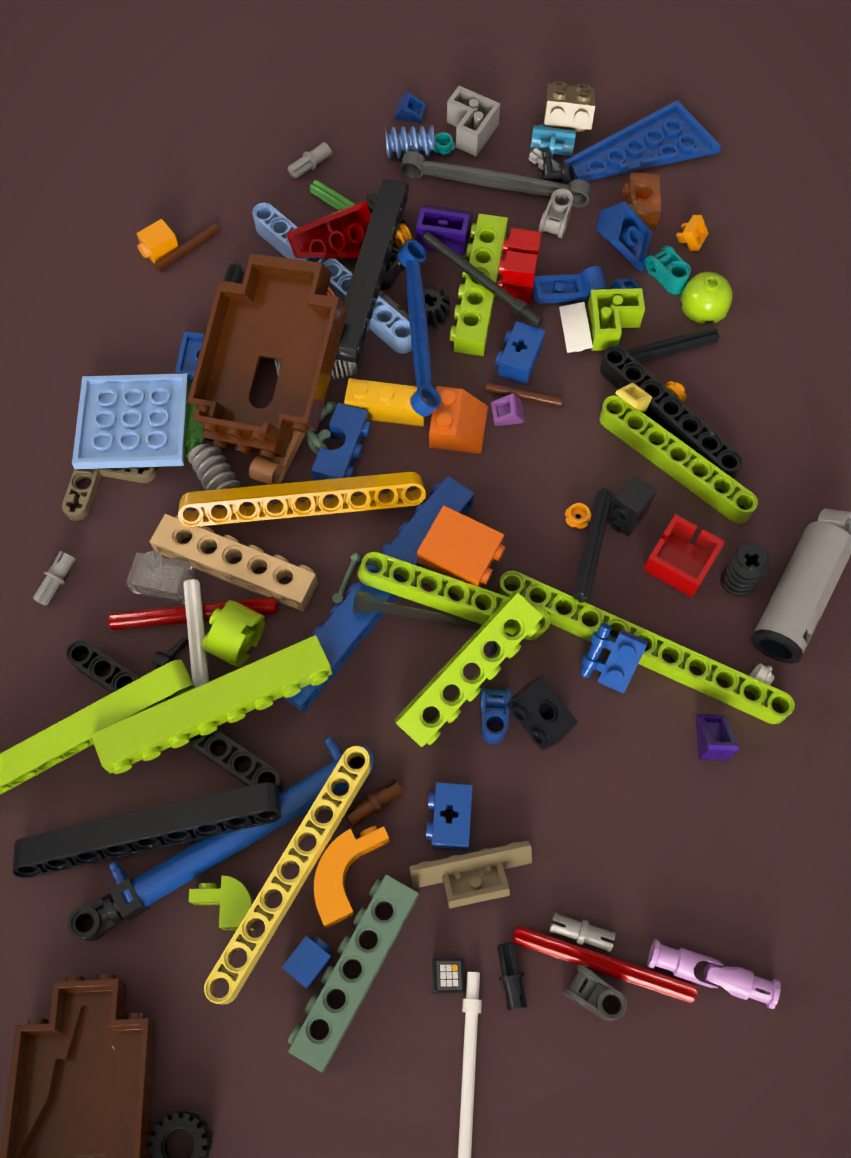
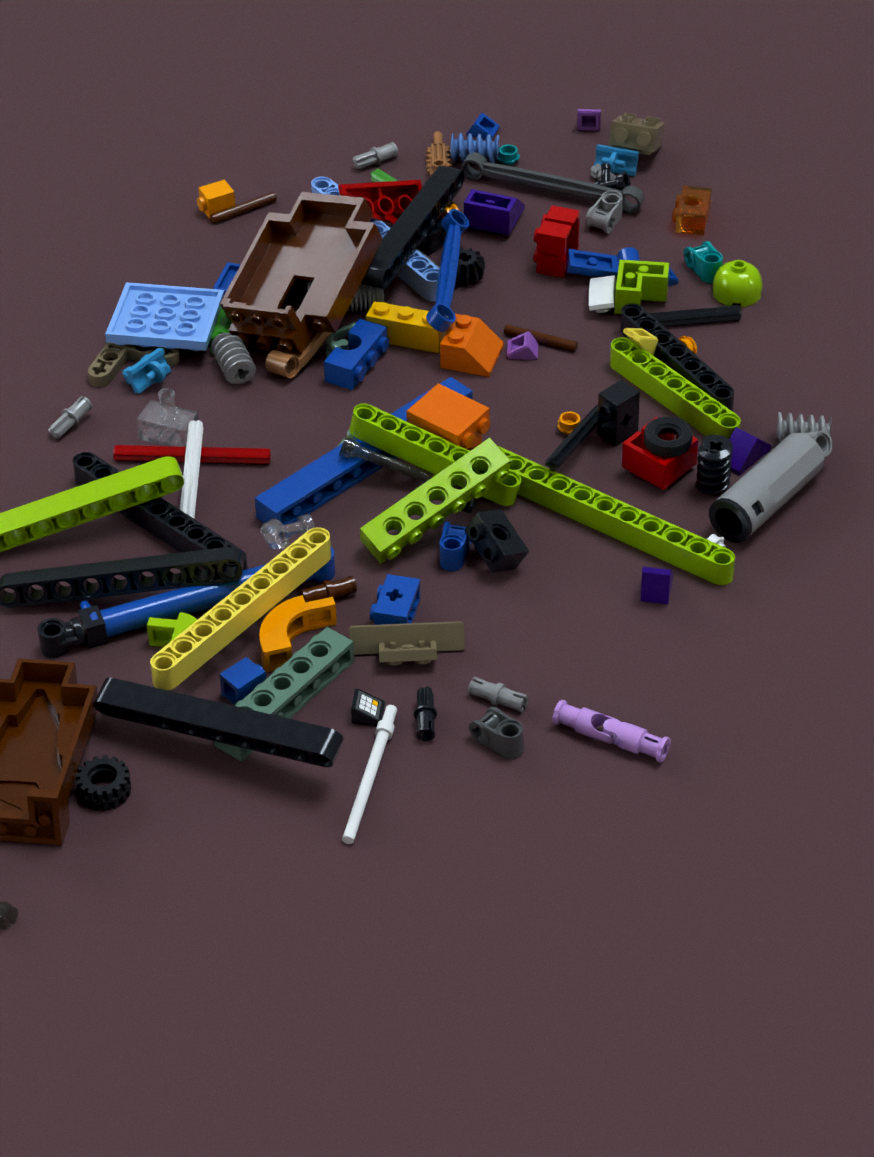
camera: 10 degrees right, 25 degrees down
(126, 500) = (147, 371): none -> dark azure hips
(211, 705) = (198, 496): lime brick -> none
(233, 633) = (227, 461): lime brick -> none
(291, 507) = (298, 384): yellow beam -> none
(294, 594) = (244, 422): tan brick -> none
(296, 1061) = (219, 722): none -> black beam
(305, 724) = (279, 535): none -> clear leg
(374, 156) = (437, 154): none -> medium nougat piece
(474, 119) = (540, 136): light grey brick -> none
(485, 256) = (514, 259): lime brick -> none
(514, 88) = (589, 120): none -> medium lavender slope
(518, 306) = (546, 266): pearl dark grey bar -> none
(520, 353) = (544, 306): blue brick -> none
(605, 964) = (530, 723): red axle -> none
(622, 661) = (581, 515): blue plate -> none
(625, 233) = (669, 230): blue slope -> none
(653, 141) = (716, 169): blue wing -> none
(693, 233) = (737, 237): light orange tile -> none
(696, 531) = (668, 448): none -> black tyre
(763, 528) = (746, 450): none -> dark purple slope
(818, 497) = (789, 426): none -> light grey piece

